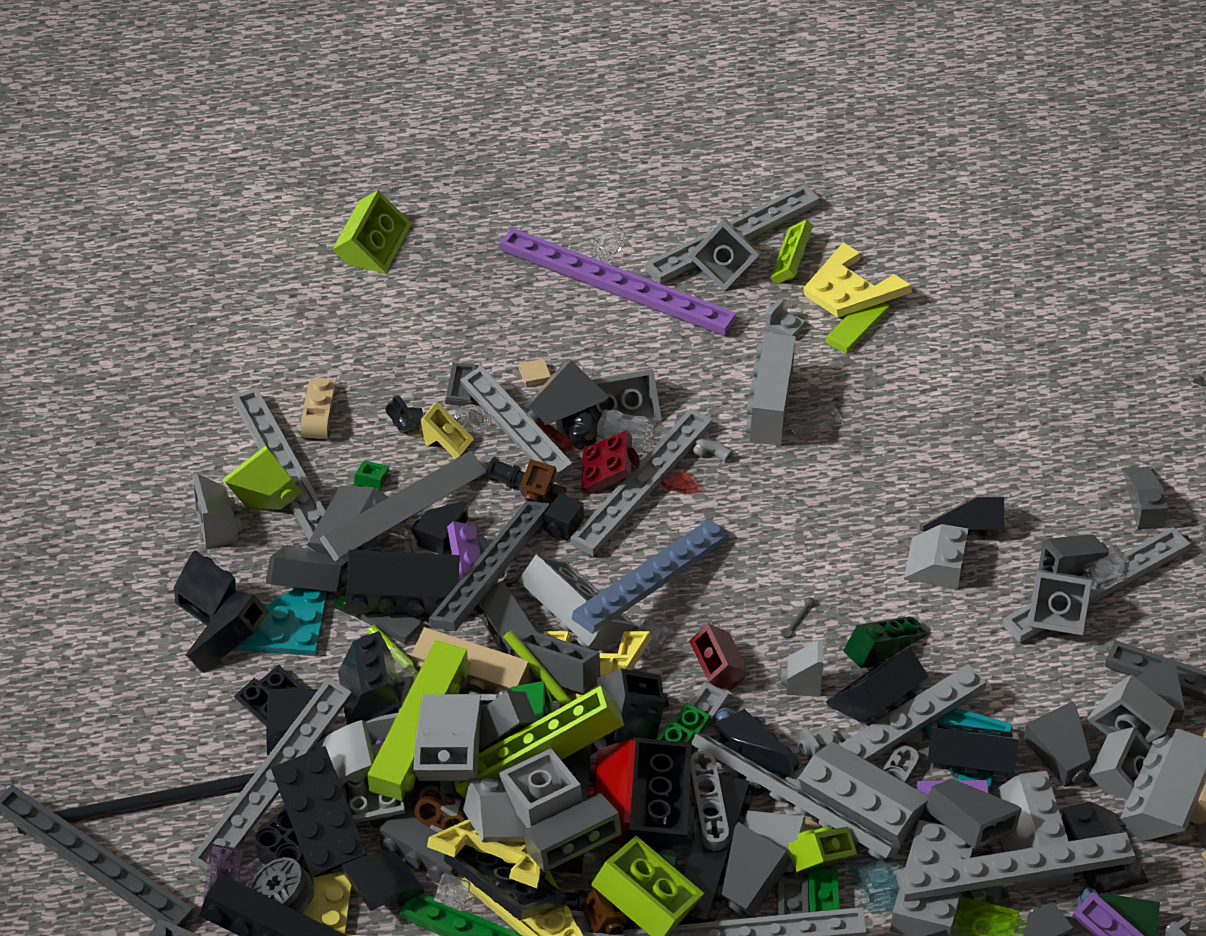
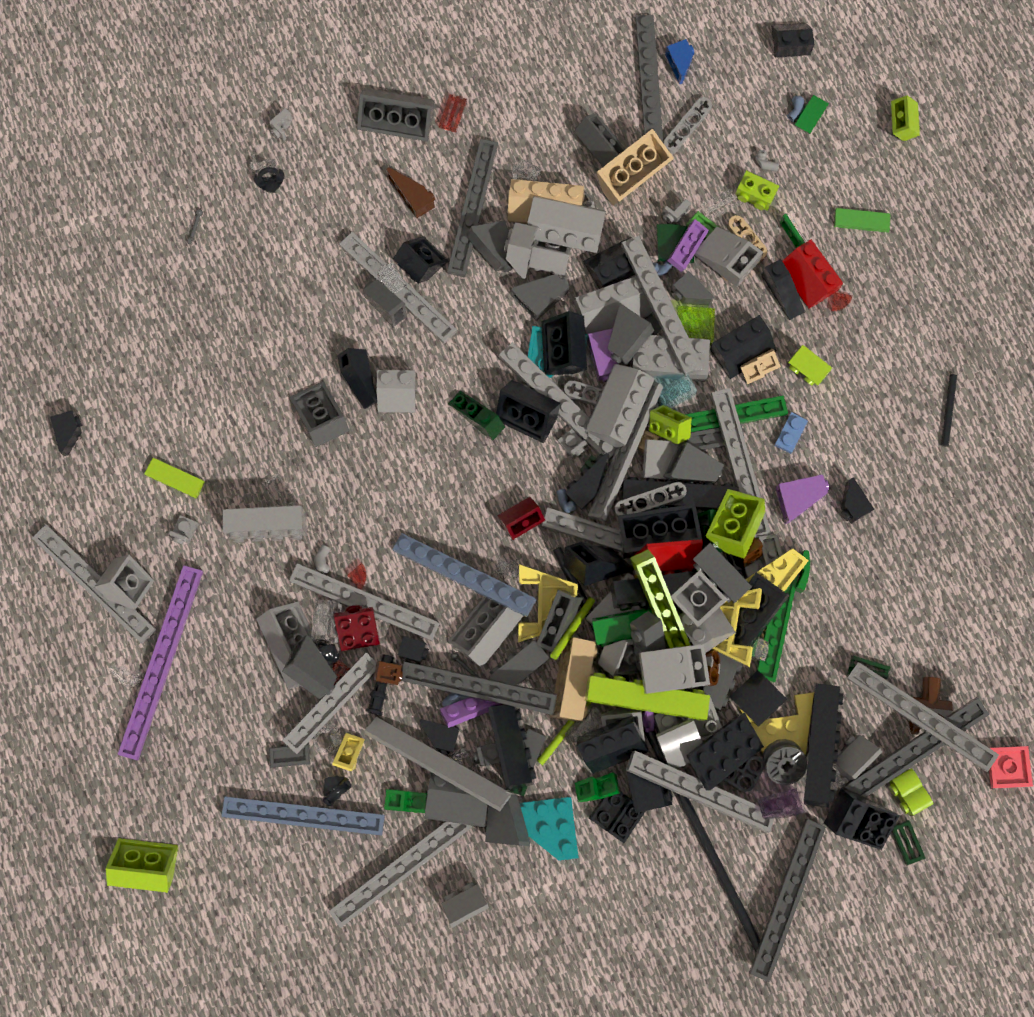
camera: 105 degrees left, 30 degrees up
(203, 587) = (544, 888): black slope -> none
(228, 628) = (571, 859): black slope -> none
(262, 482) = (436, 871): lime slope -> none
(316, 672) = (597, 788): none -> green slope
(317, 408) = (337, 858): tan plate -> none
(380, 385) = (303, 816): none -> sand blue plate
(534, 372) = (268, 703): tan tile -> none
(685, 725) = (590, 530): green slope -> none
(787, 632) = (480, 480): dark grey hinge -> none
(791, 252) = (108, 536): lime plate -> none
(804, 671) = (522, 460): light grey slope -> none
(846, 292) = (143, 493): light yellow wing -> none
(916, 471) = (319, 414): none -> dark grey slope
(939, 229) = (66, 430): none -> black slope
(1059, 602) = (428, 304): light grey slope -> none
(1139, 613) = (420, 259): none -> black slope
(1146, 498) = (310, 264): dark grey slope -> none

